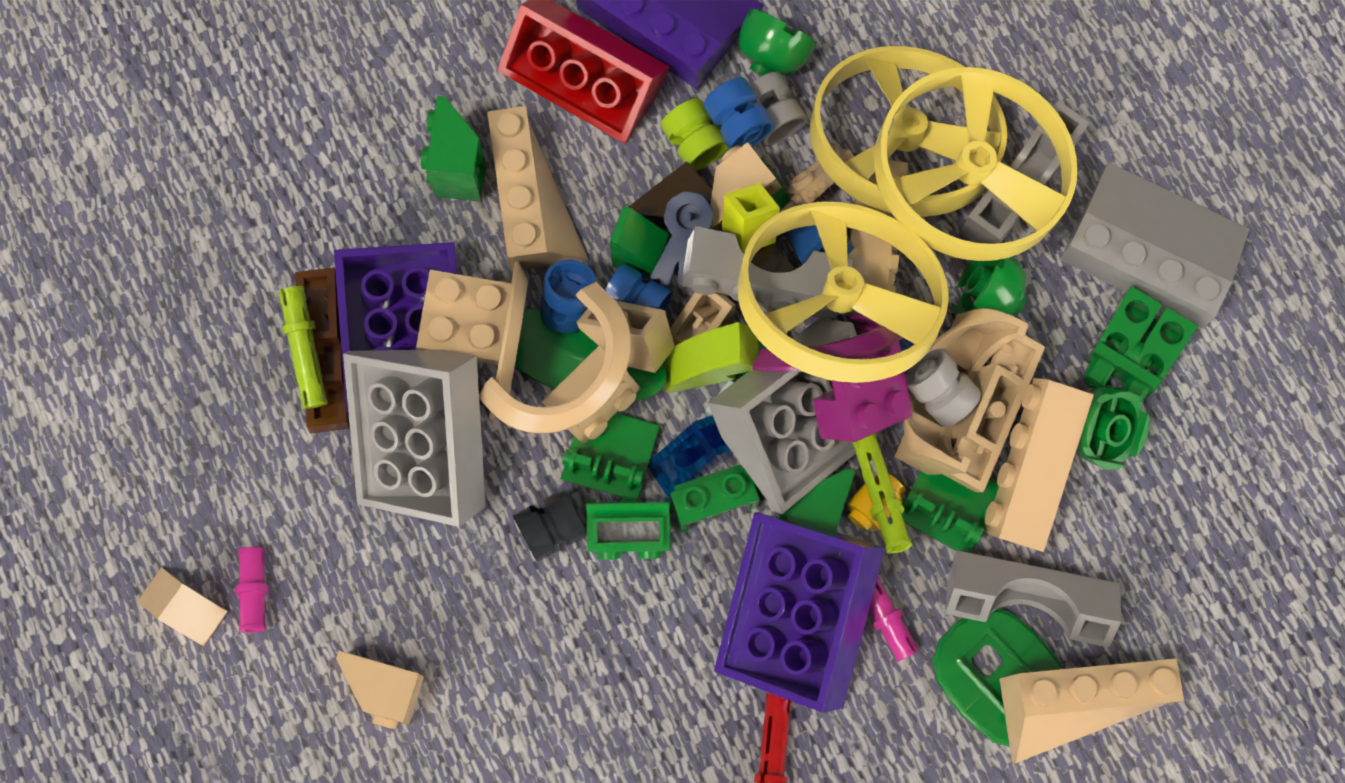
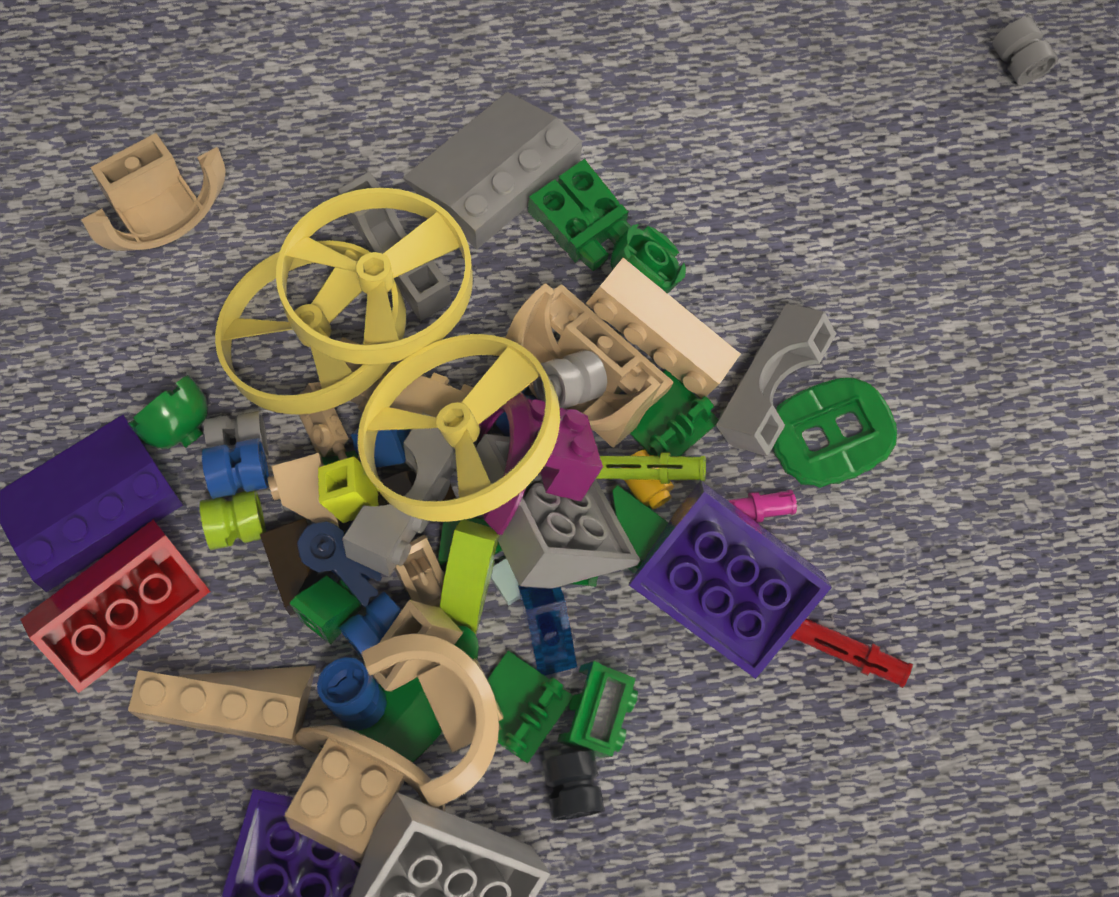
camera: 75 degrees left, 5 degrees down
(454, 155) = (161, 756): green slope -> none
(713, 496) = (597, 621): green window -> none
(994, 284) = (489, 306): green cylinder -> none
(1070, 703) = (875, 384): tan wedge -> none

